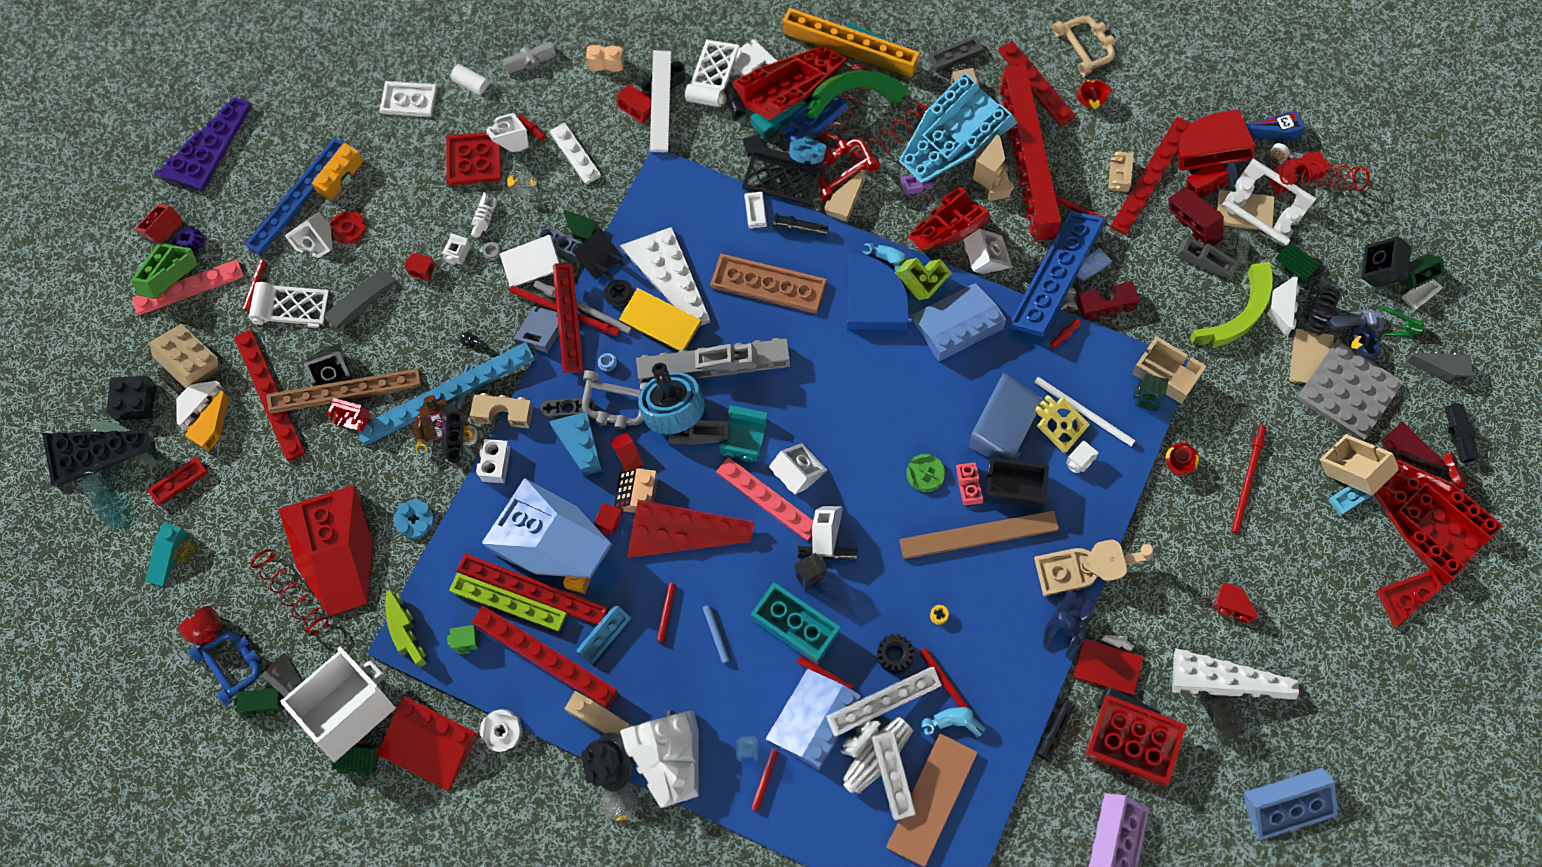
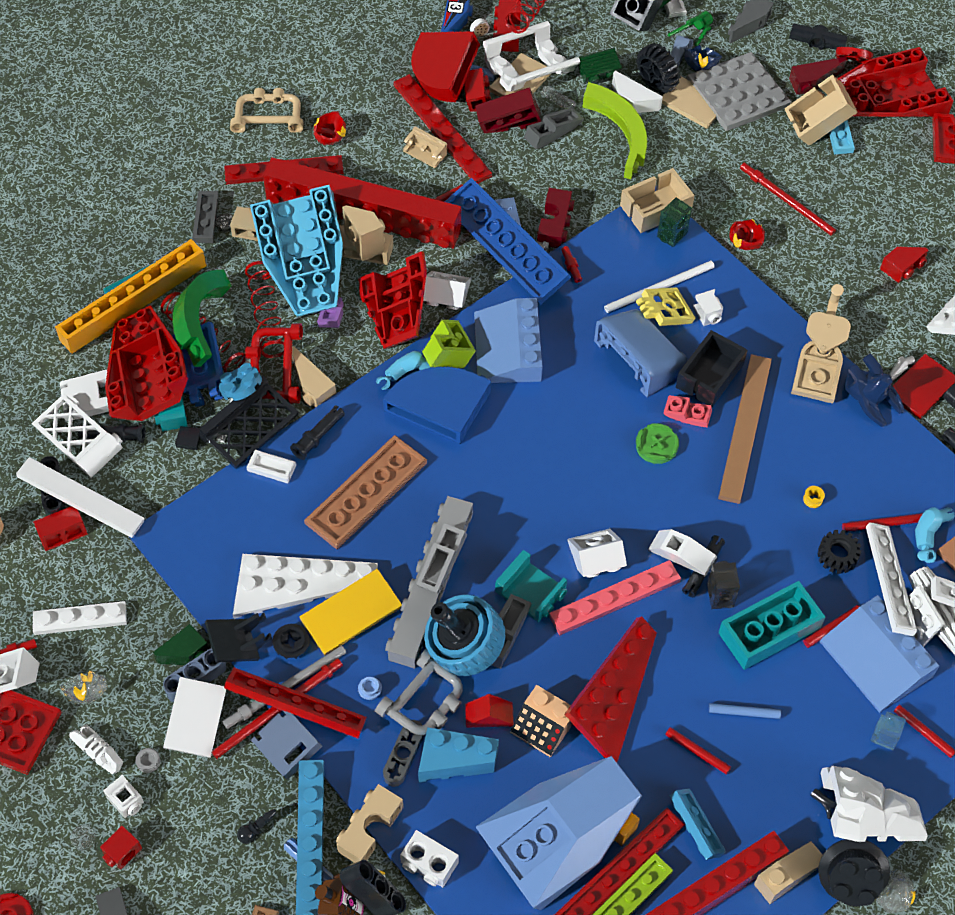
camera: 70 degrees left, 10 degrees down
(608, 519) = (562, 760): red brick -> none

